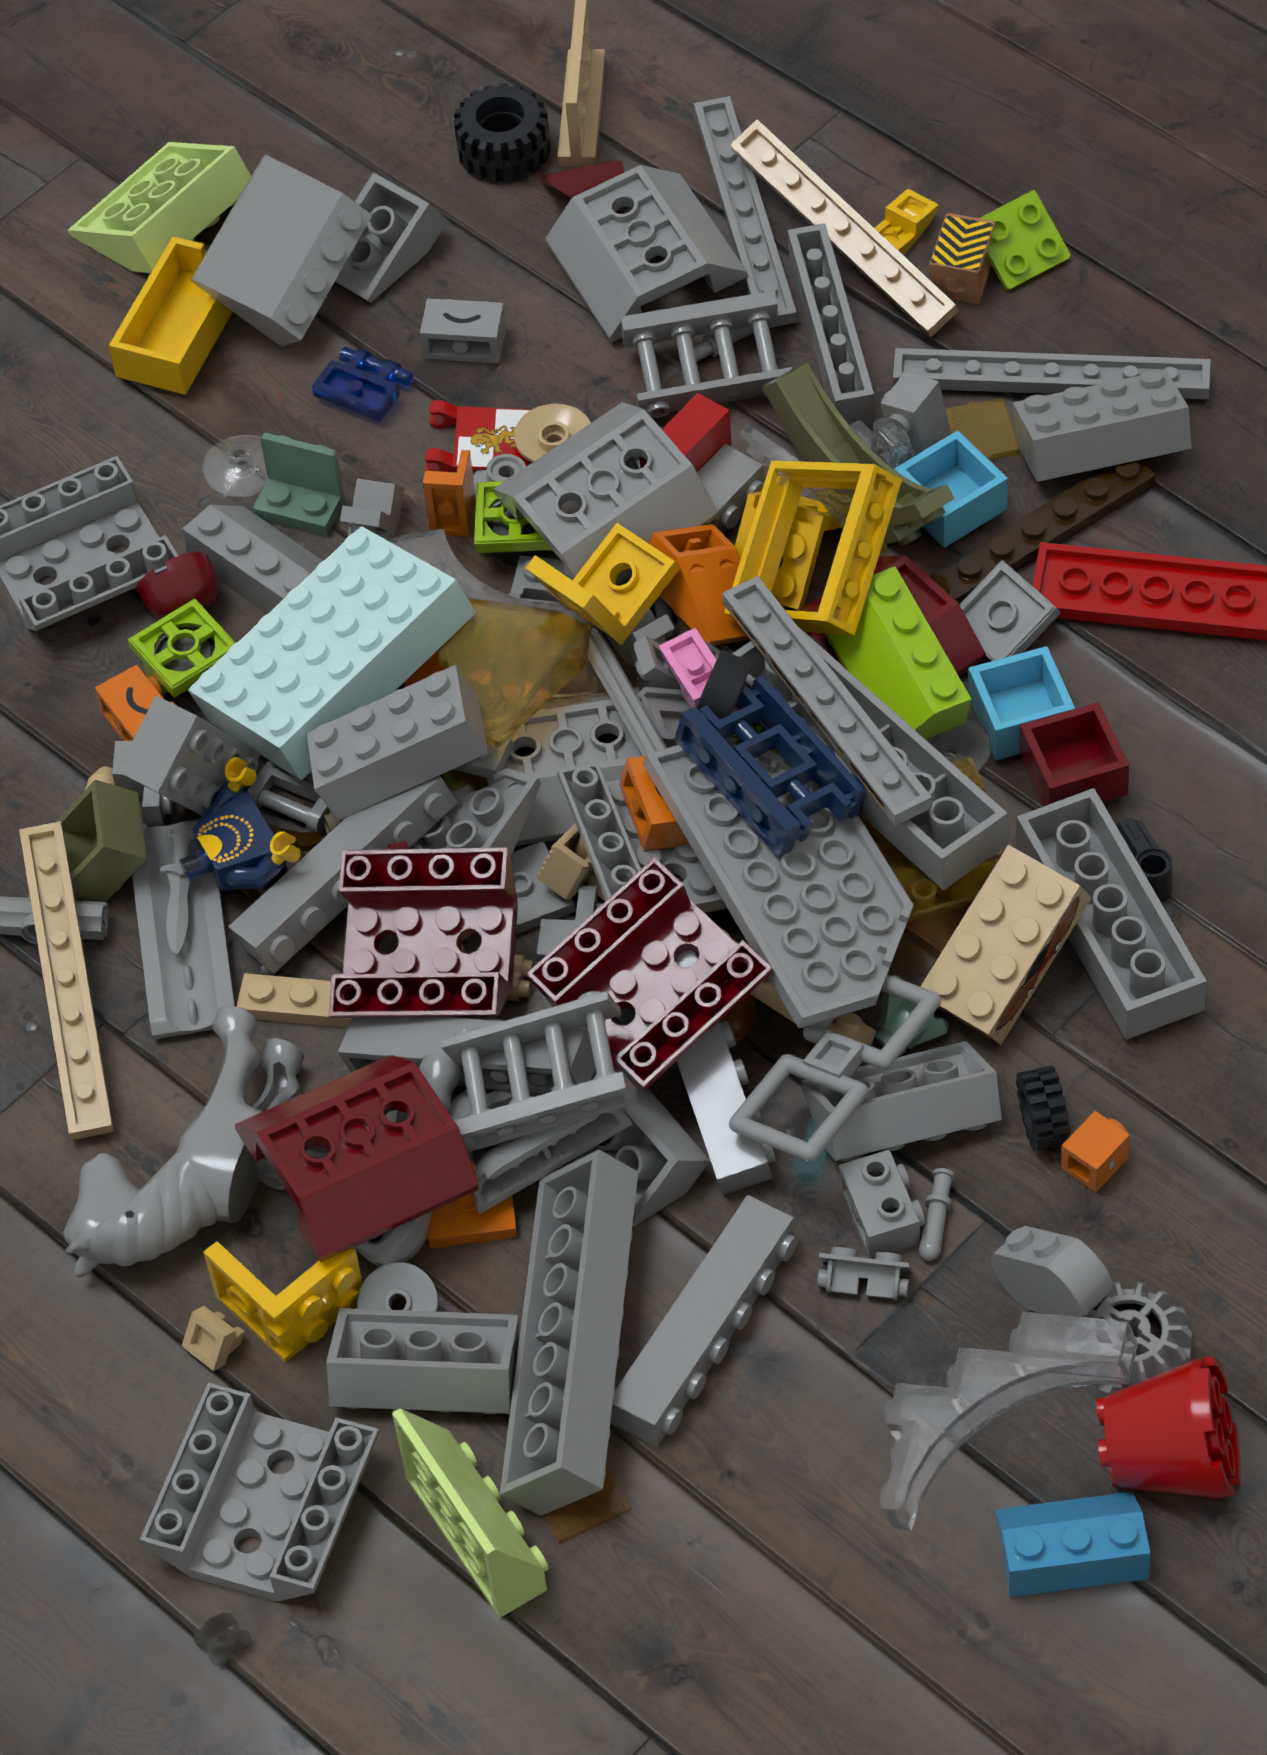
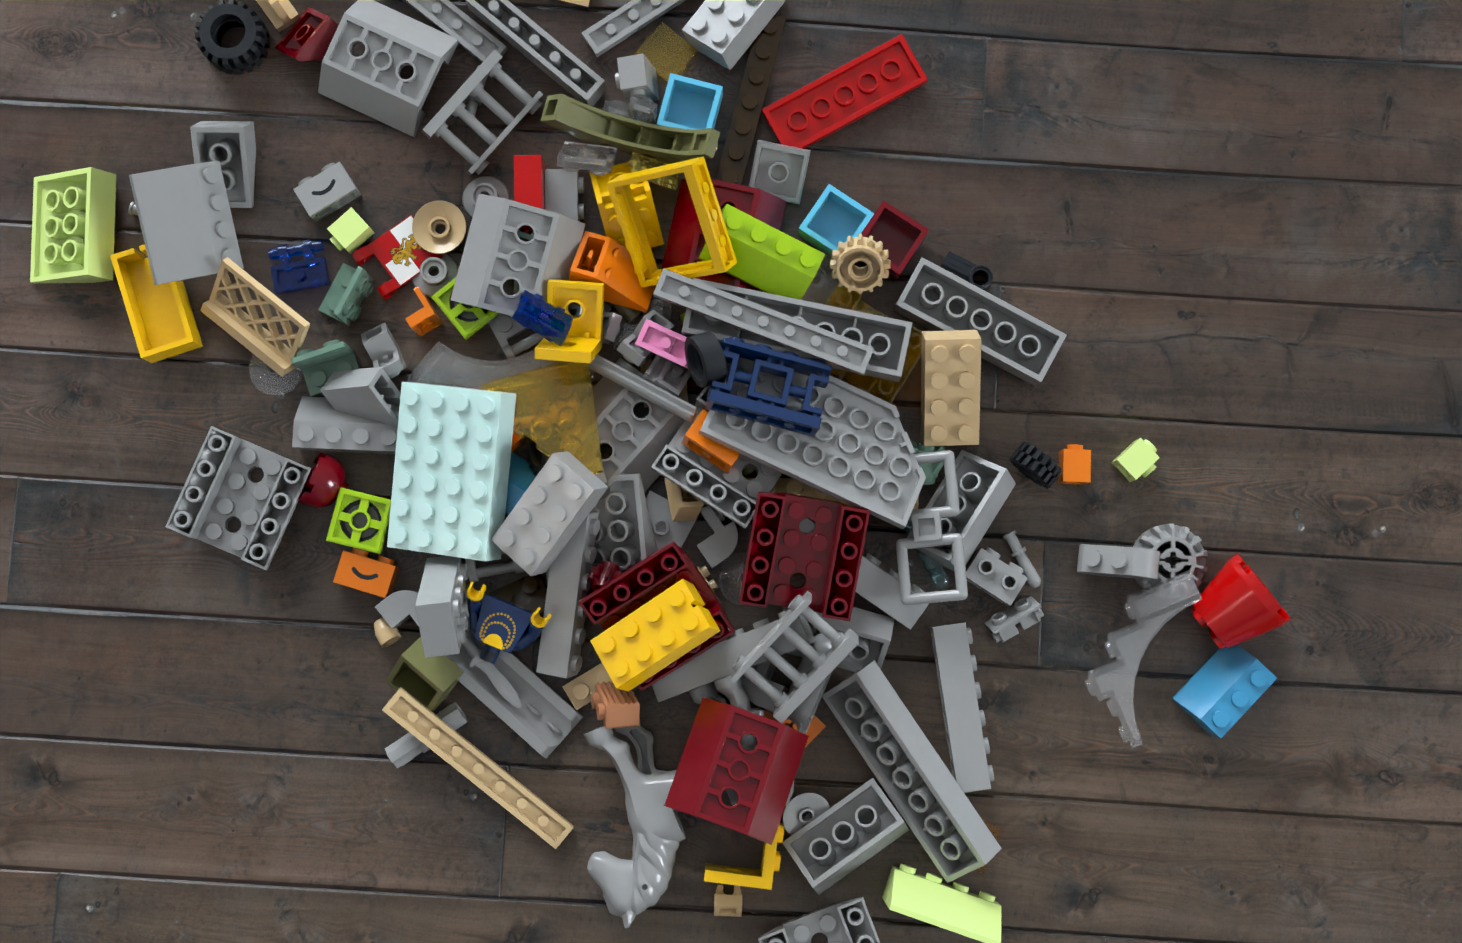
camera: 45 degrees left, 30 degrees up
(248, 393) = (248, 328): none -> tan fence
(285, 1011) = (615, 706): none -> nougat brick
(308, 524) = (364, 394): none -> light grey slope
(390, 434) = (347, 294): none -> sand green bracket
(397, 945) = (654, 635): none -> yellow piece
(450, 376) = (349, 231): none -> yellowish green brick
(574, 542) = (542, 317): none -> clear blue plate
(1027, 742) = (856, 250): none -> tan gear
(1185, 1195) = (1137, 460): none -> yellowish green brick

